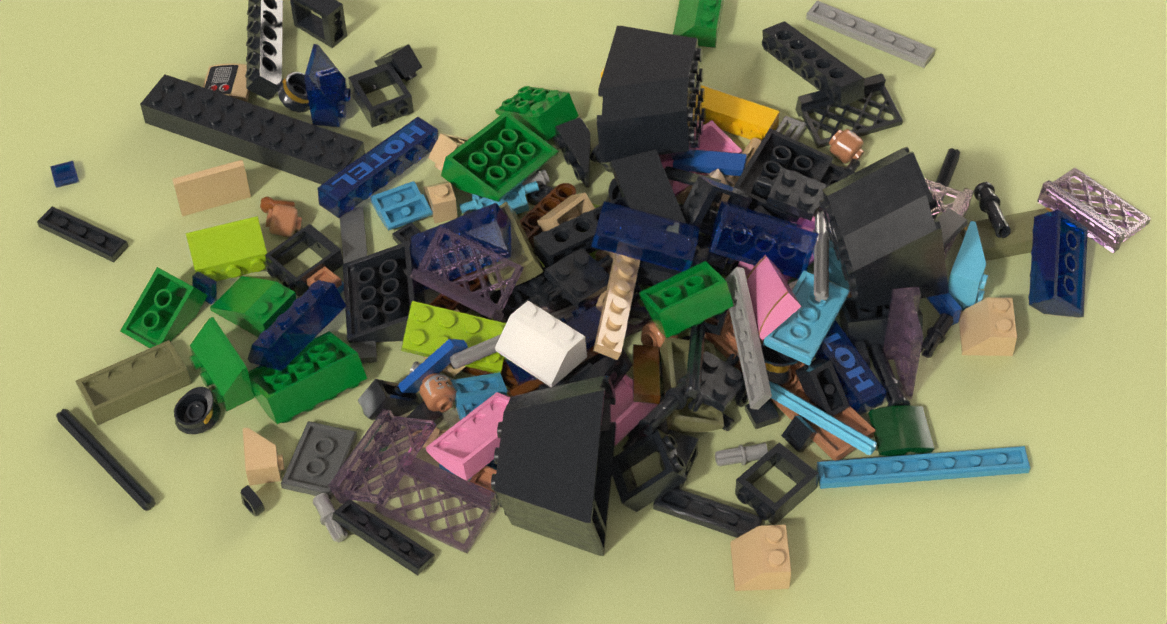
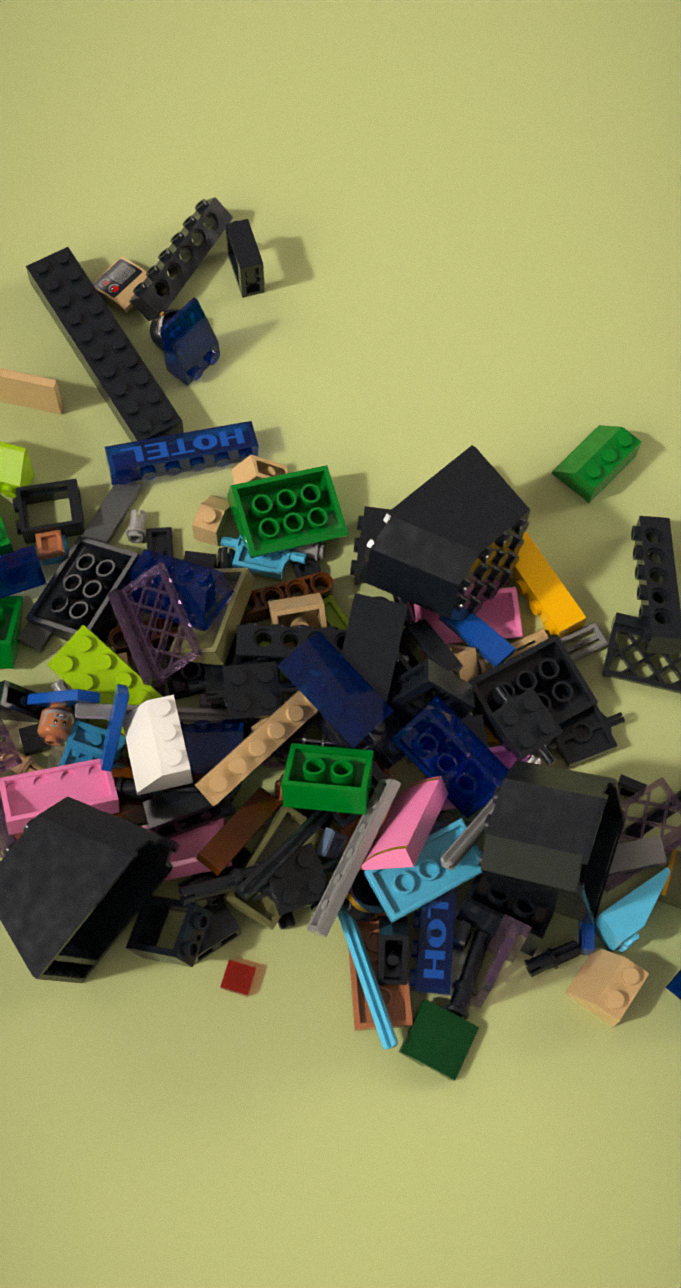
camera: 30 degrees right, 15 degrees up
(268, 202) = (67, 436): dark orange arm -> none
(283, 220) = (63, 458): nougat head -> none
(376, 79) = (246, 356): black window -> none
(385, 238) = (136, 527): none -> light grey pin
(401, 205) = (174, 504): dark azure slope -> none
(403, 61) = (282, 352): black slope -> none
(494, 355) = (114, 727): none -> blue tile
(540, 109) = (367, 477): green slope -> none
(707, 512) = (203, 1009): black tile -> none
(719, 346) = (331, 844): none -> sand blue tile
(720, 480) = (238, 978): none -> clear red tile
(740, 454) = (274, 964): light grey axle -> none
(761, 559) = (206, 1088): tan slope -> none
(763, 416) = (333, 938): black tile -> none
(792, 467) = (308, 1039): black window -> none
(799, 434) = (341, 979): black tile -> none
(846, 146) = (626, 694): nougat head -> none
(922, 467) = (432, 1092): dark azure tile -> none

